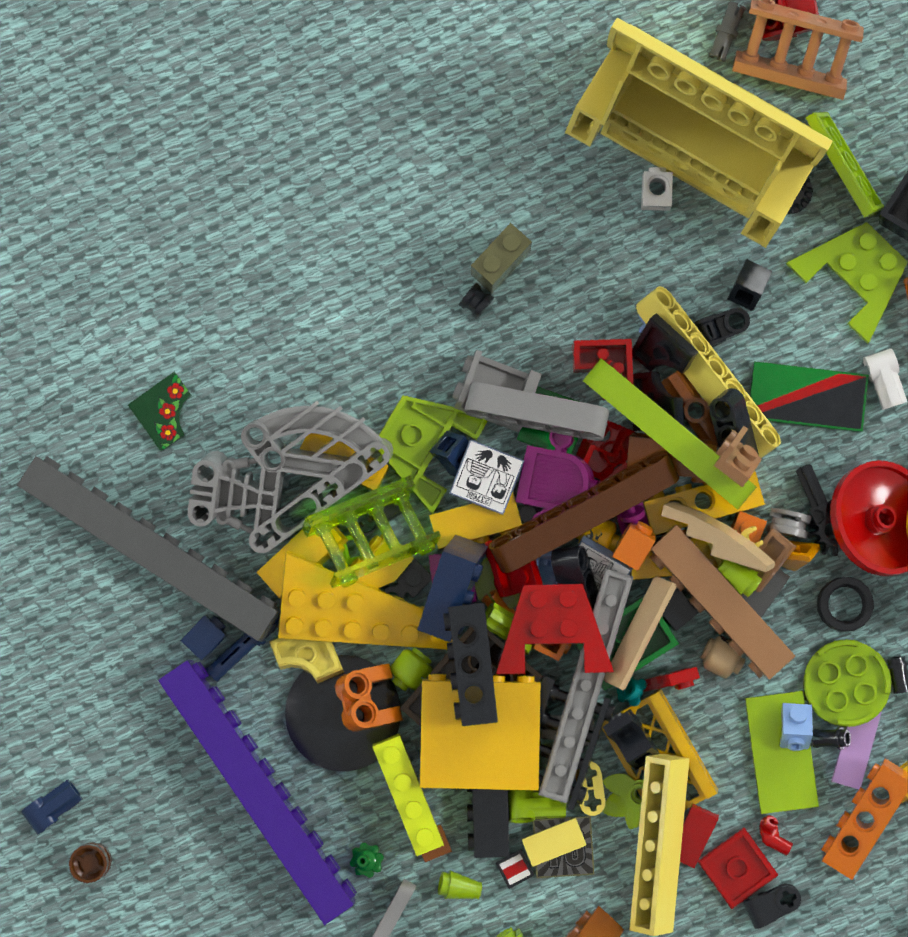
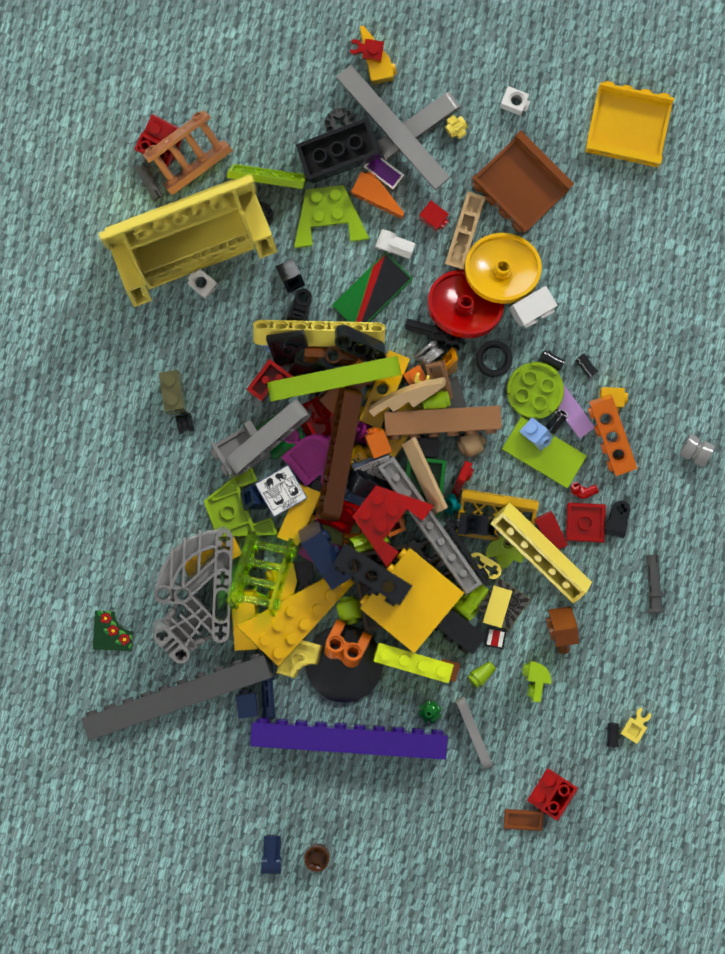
camera: 55 degrees left, 0 degrees up
(736, 459) = (374, 354): medium nougat bracket -> none

